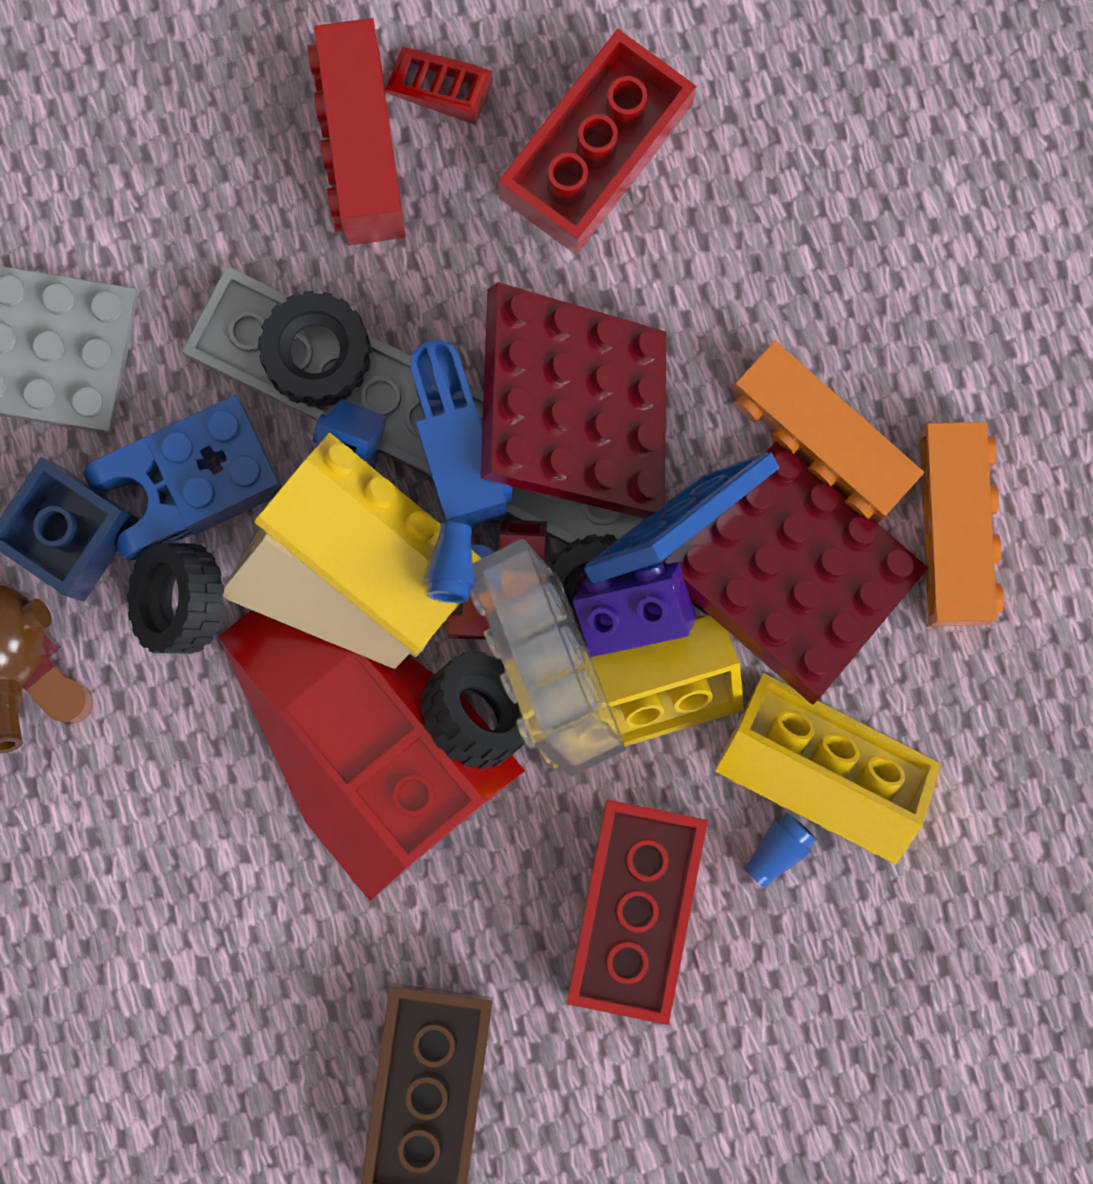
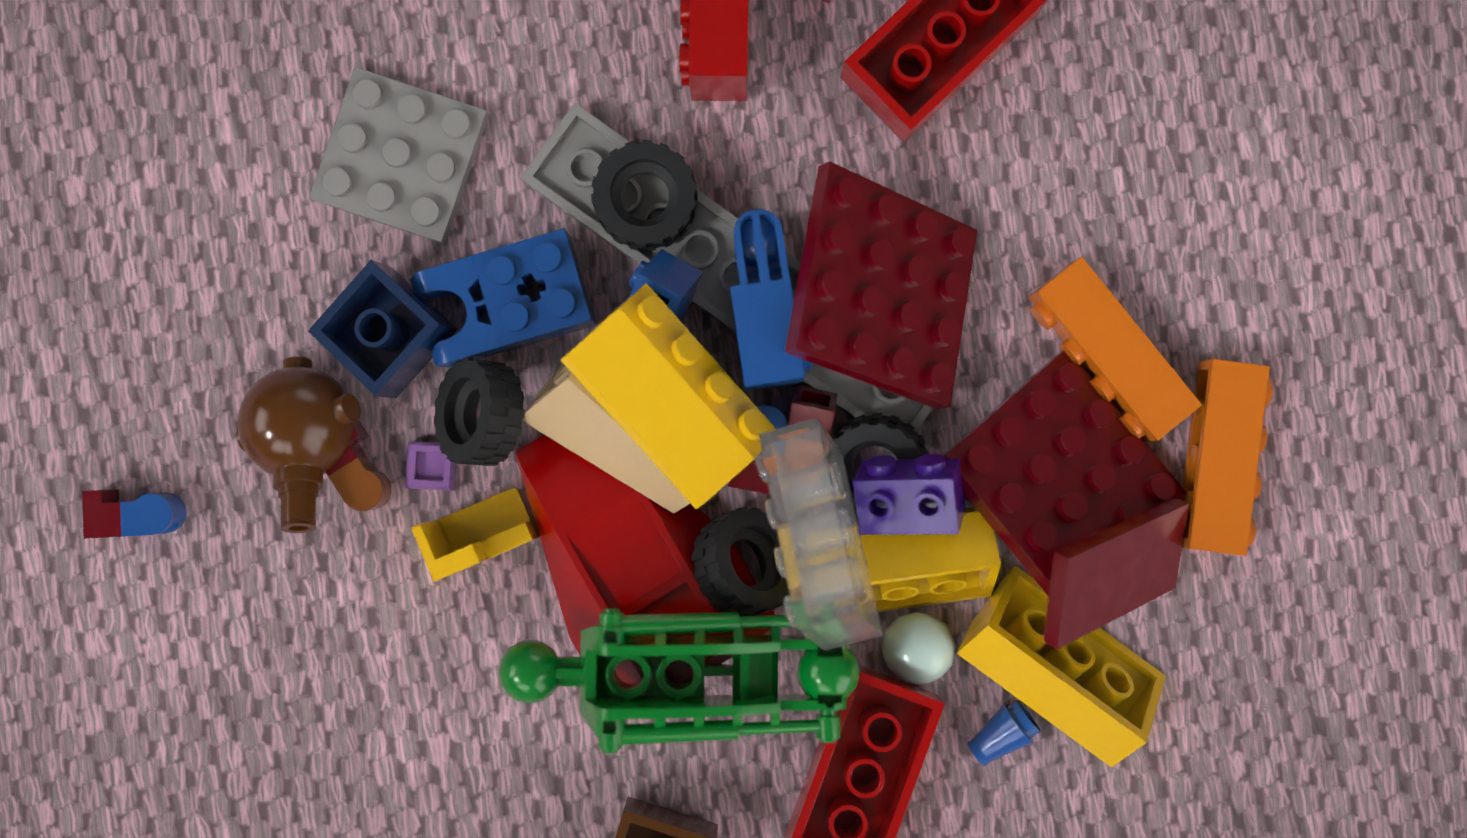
camera: 15 degrees right, 5 degrees up
(130, 668) = (429, 467): none -> medium lavender tile
(192, 728) = (474, 534): none -> yellow panel
(451, 565) = (743, 432): blue cone -> none
(576, 804) = (533, 672): none -> green piece
(676, 775) = (918, 648): none -> light aqua hair
(683, 518) = (975, 415): blue tile -> none
(859, 653) = (1114, 572): none -> dark red tile

